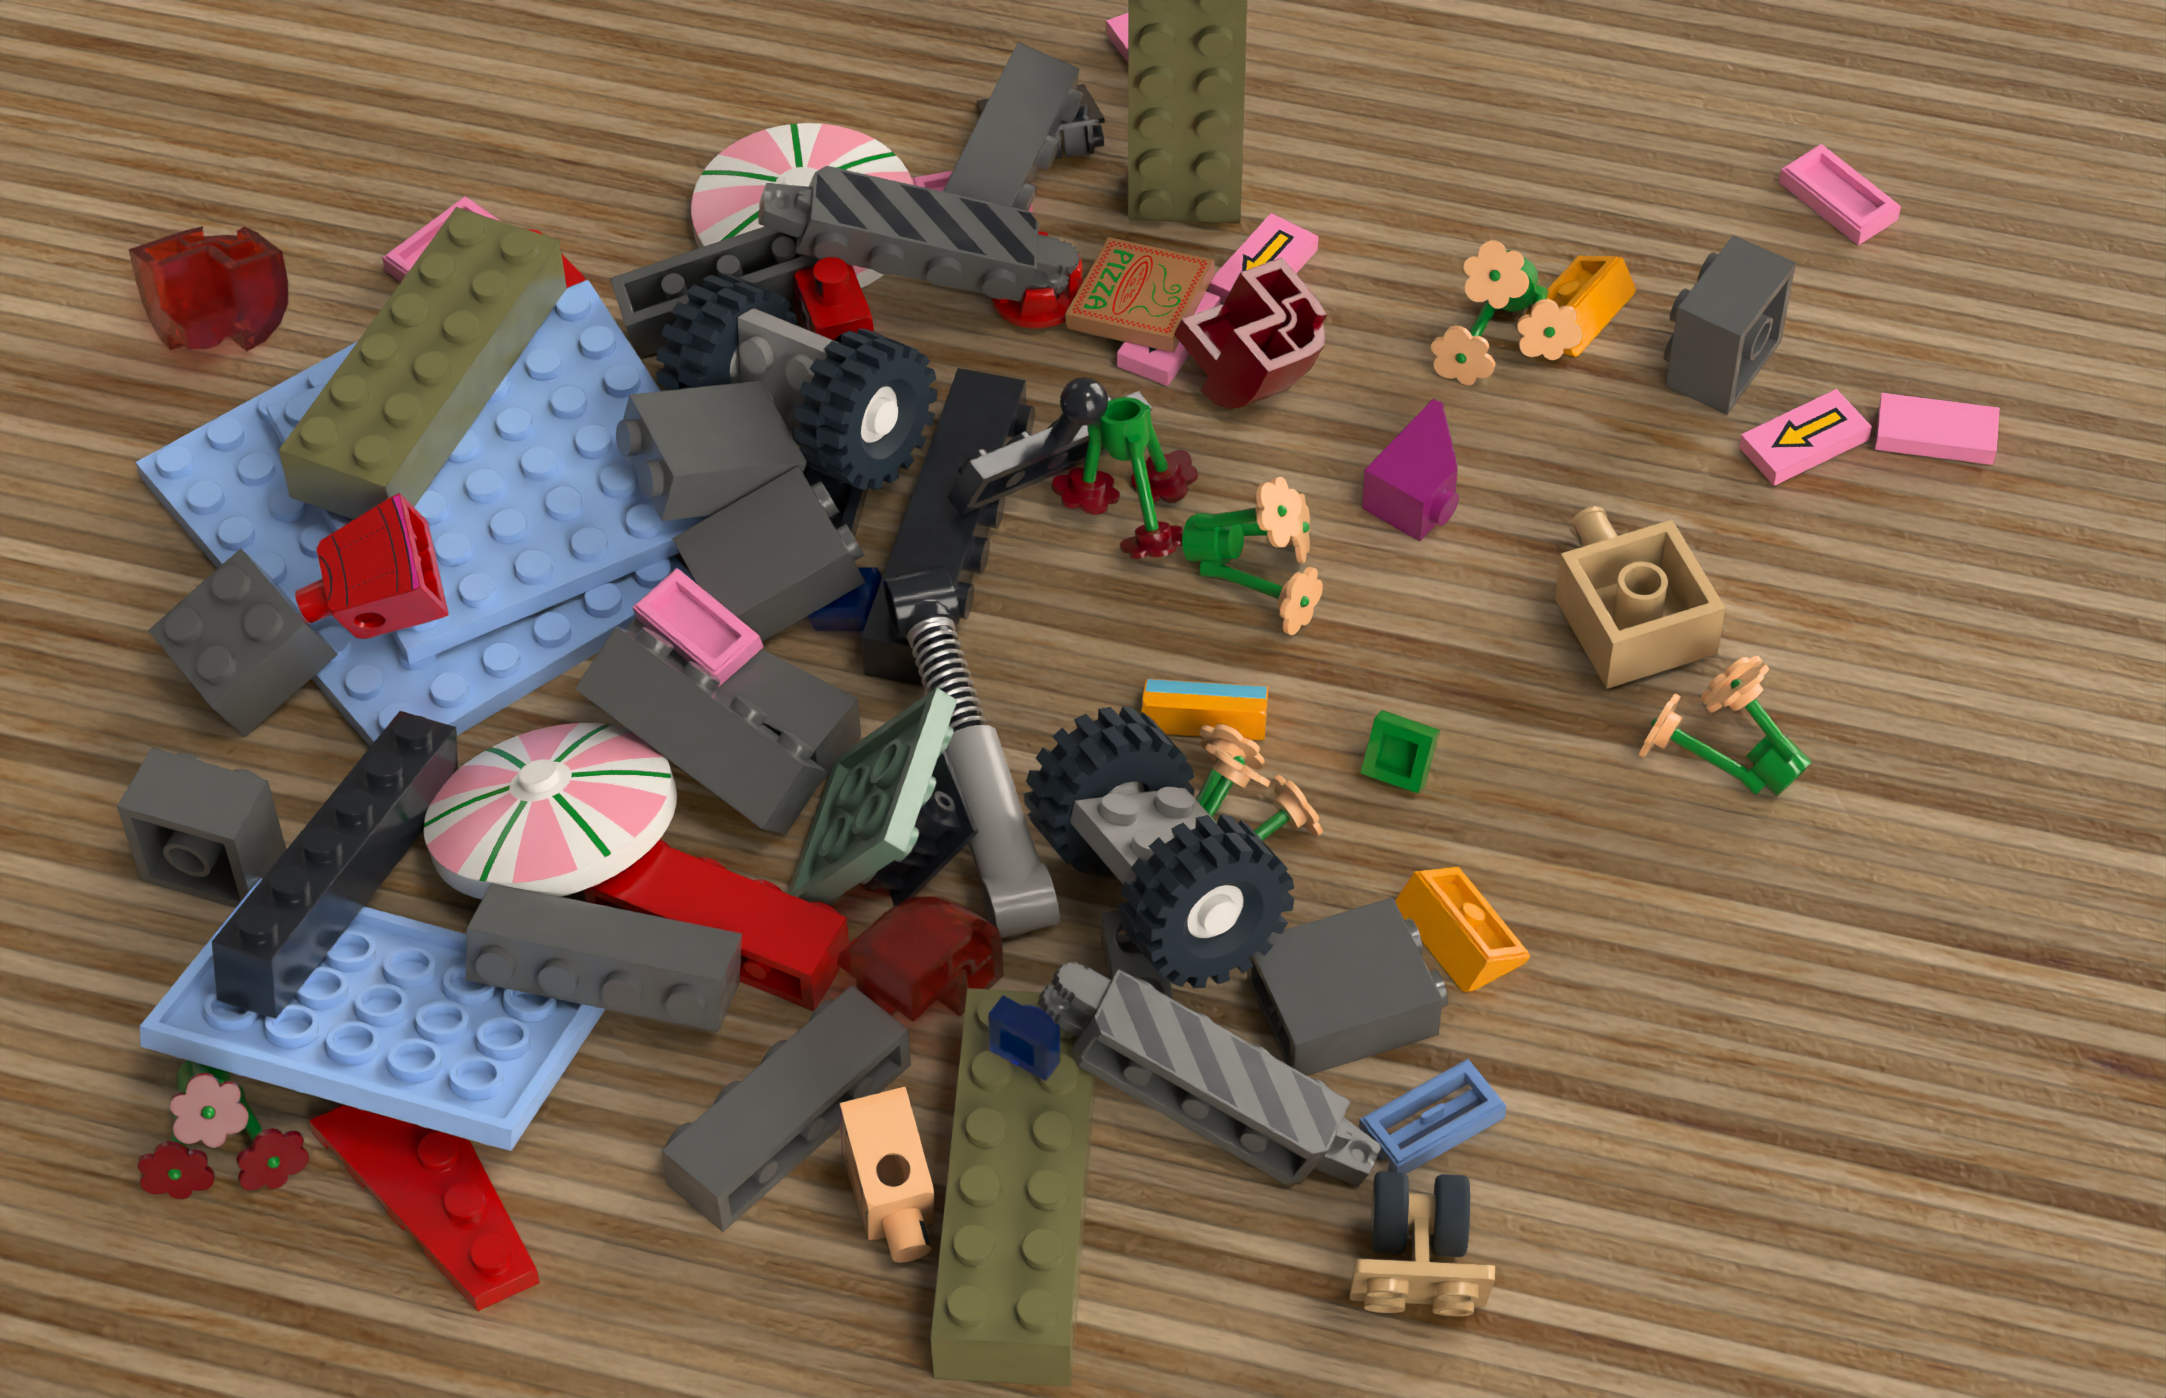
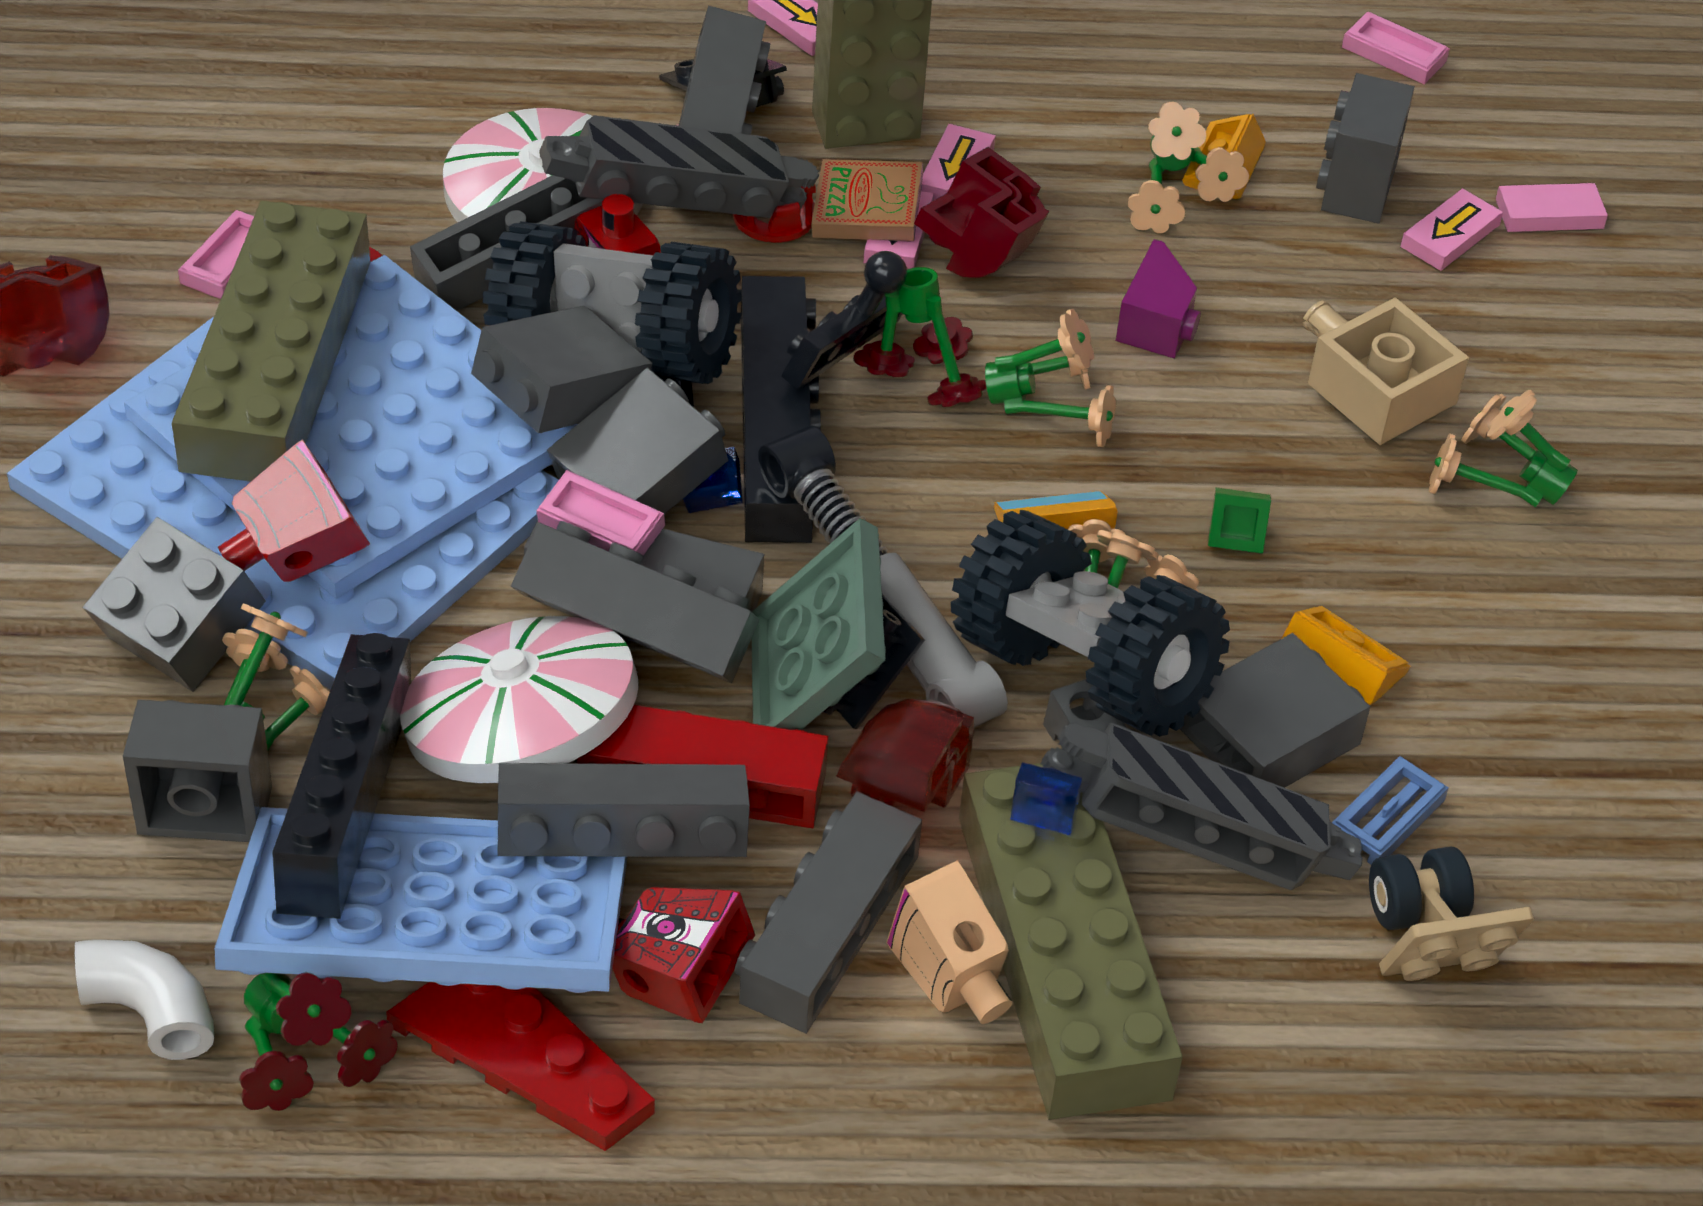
camera: 20 degrees left, 5 degrees down
(93, 1045) = (154, 986): none -> white cylinder
(306, 707) = (259, 653): none -> light nougat plant
(615, 1116) = (681, 948): none -> red torso

